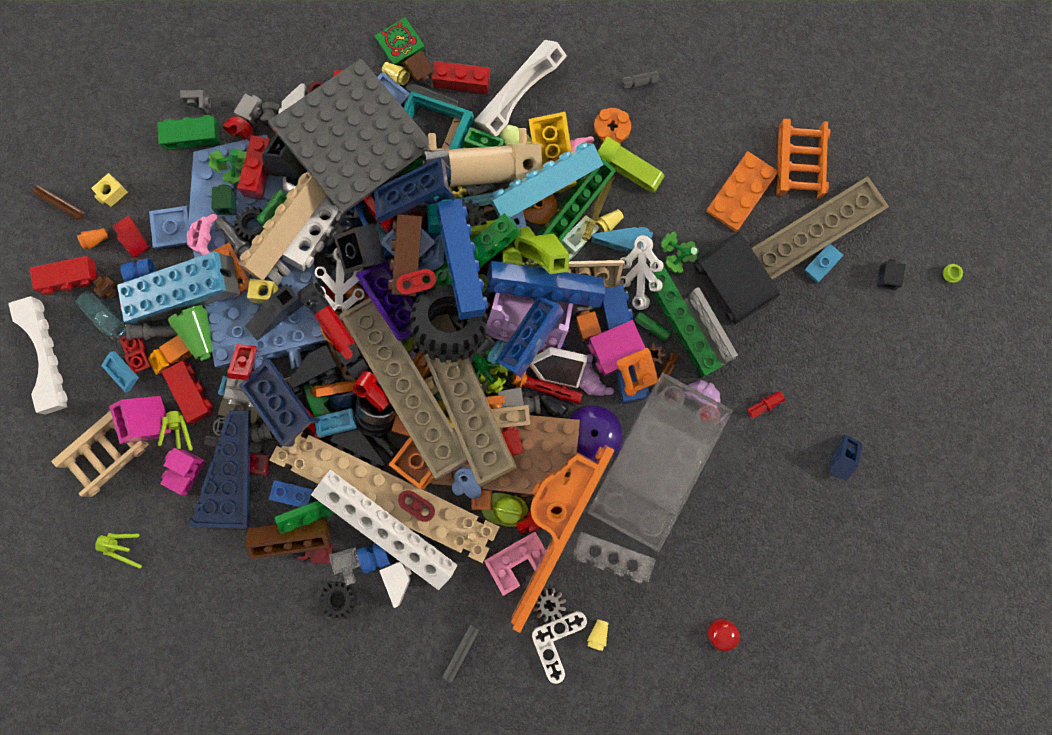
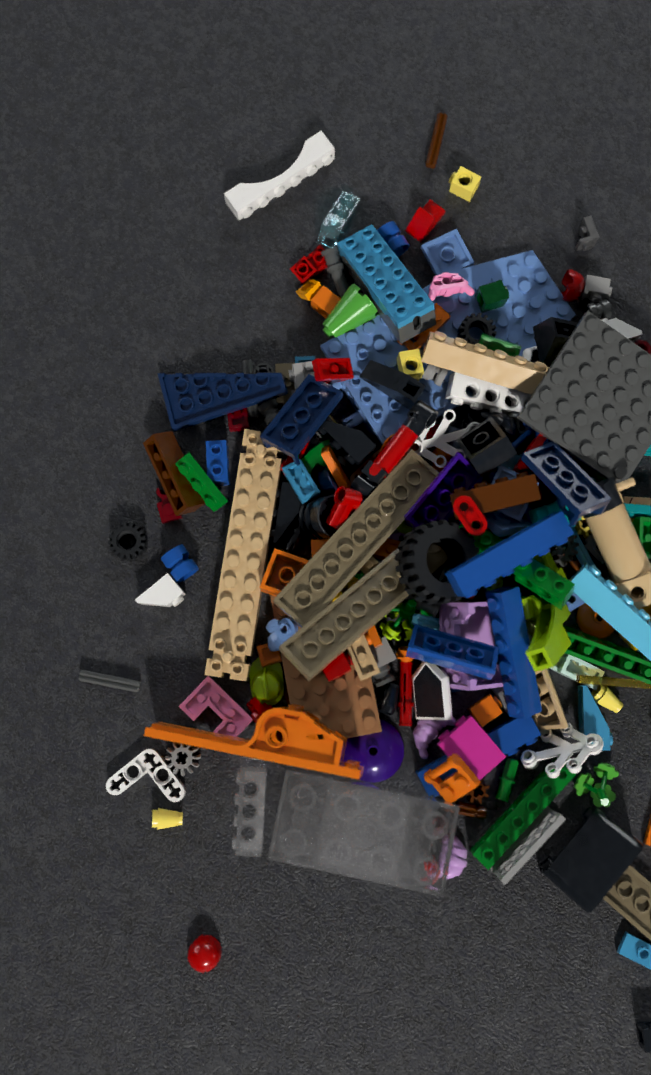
camera: 75 degrees right, 0 degrees up
(63, 275) = (365, 171): red brick -> none
(82, 447) = (204, 247): tan fence -> none
(91, 238) = (411, 184): orange cone -> none
(105, 287) = (366, 214): reddish brown gear -> none
(108, 545) = (118, 305): lime plant -> none
(119, 371) = (288, 256): dark azure plate -> none
(138, 419) = (246, 291): dark pink brick -> none
(175, 421) = (255, 325): lime plant -> none
(182, 470) = (209, 348): dark pink brick -> none
(188, 132) = (550, 238): green brick -> none
(188, 392) = (288, 328): red brick -> none
(233, 237) = (450, 328): dark grey pin -> none
(236, 160) = (538, 295): bright green plant -> none
(253, 178) = (526, 315): red brick -> none
(344, 562) = (166, 536): clear brick -> none
(384, 530) = (208, 565): white brick -> none
(417, 505) = (241, 590): dark red plate -> none
(766, 404) = (463, 931): red axle -> none
(845, 458) = (432, 1038): dark blue slope -> none

